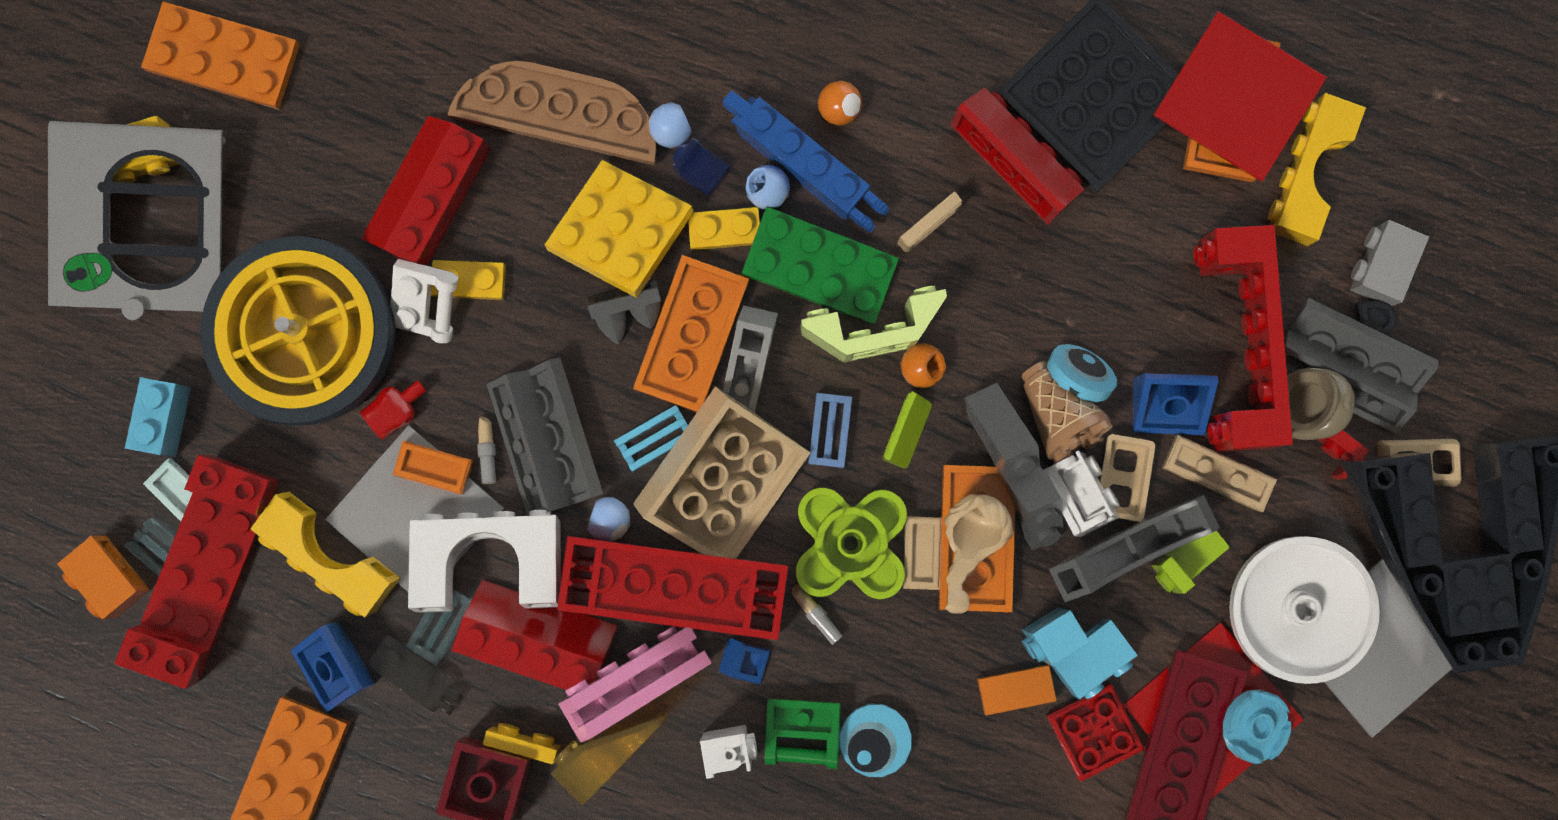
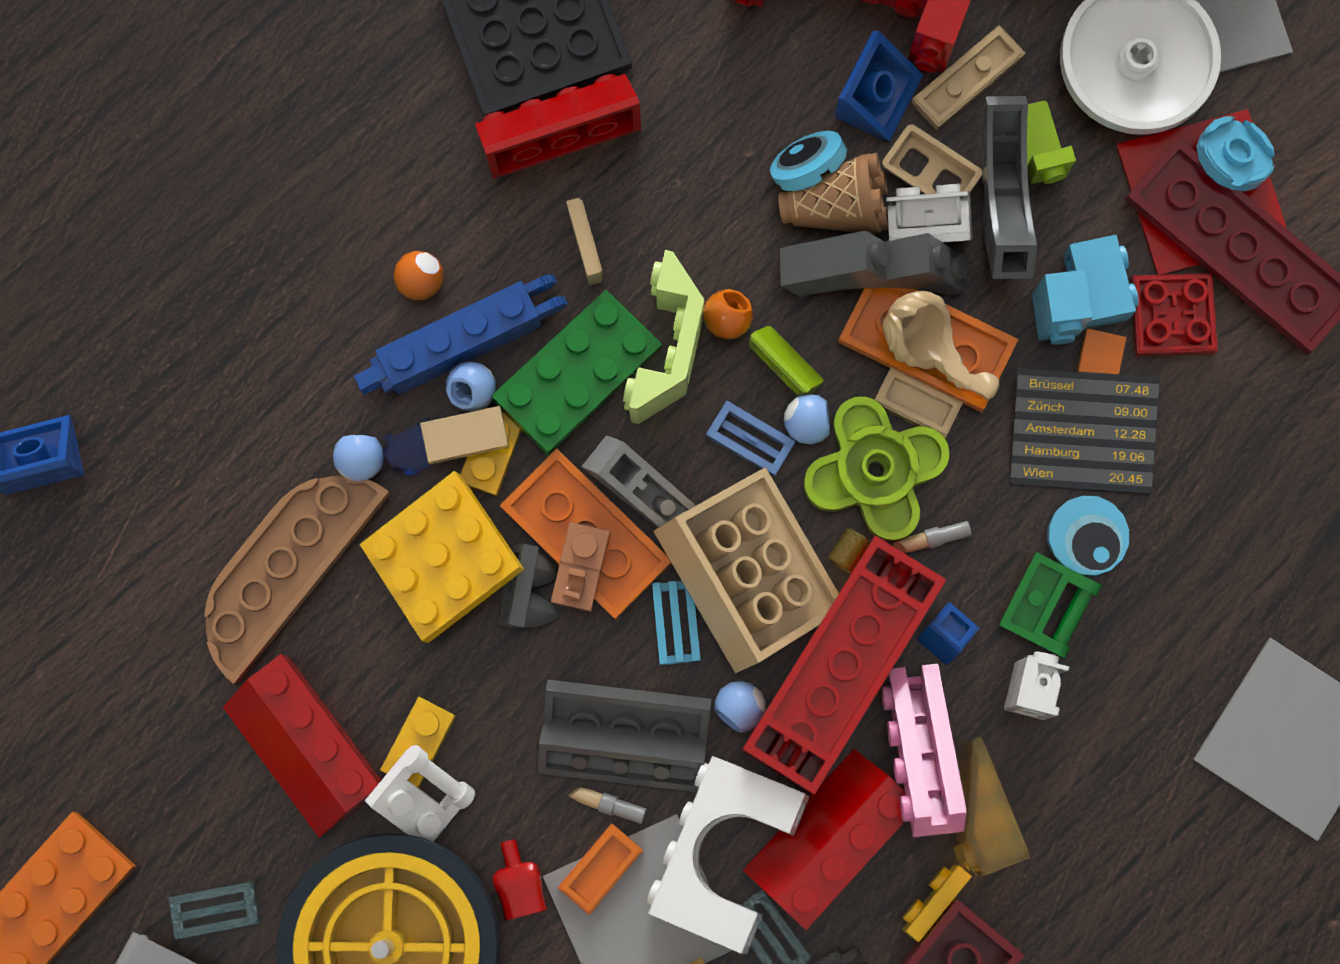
camera: 65 degrees left, 5 degrees down
(287, 208) = (249, 904): none -> clear light blue tile
(660, 341) = (580, 567): none -> nougat plate
(724, 200) = (464, 435): none -> tan tile
(774, 550) = (848, 550): none -> clear yellow hinge
(865, 469) = (807, 419): none -> light blue piece
(962, 700) = (1084, 430): none -> sticker

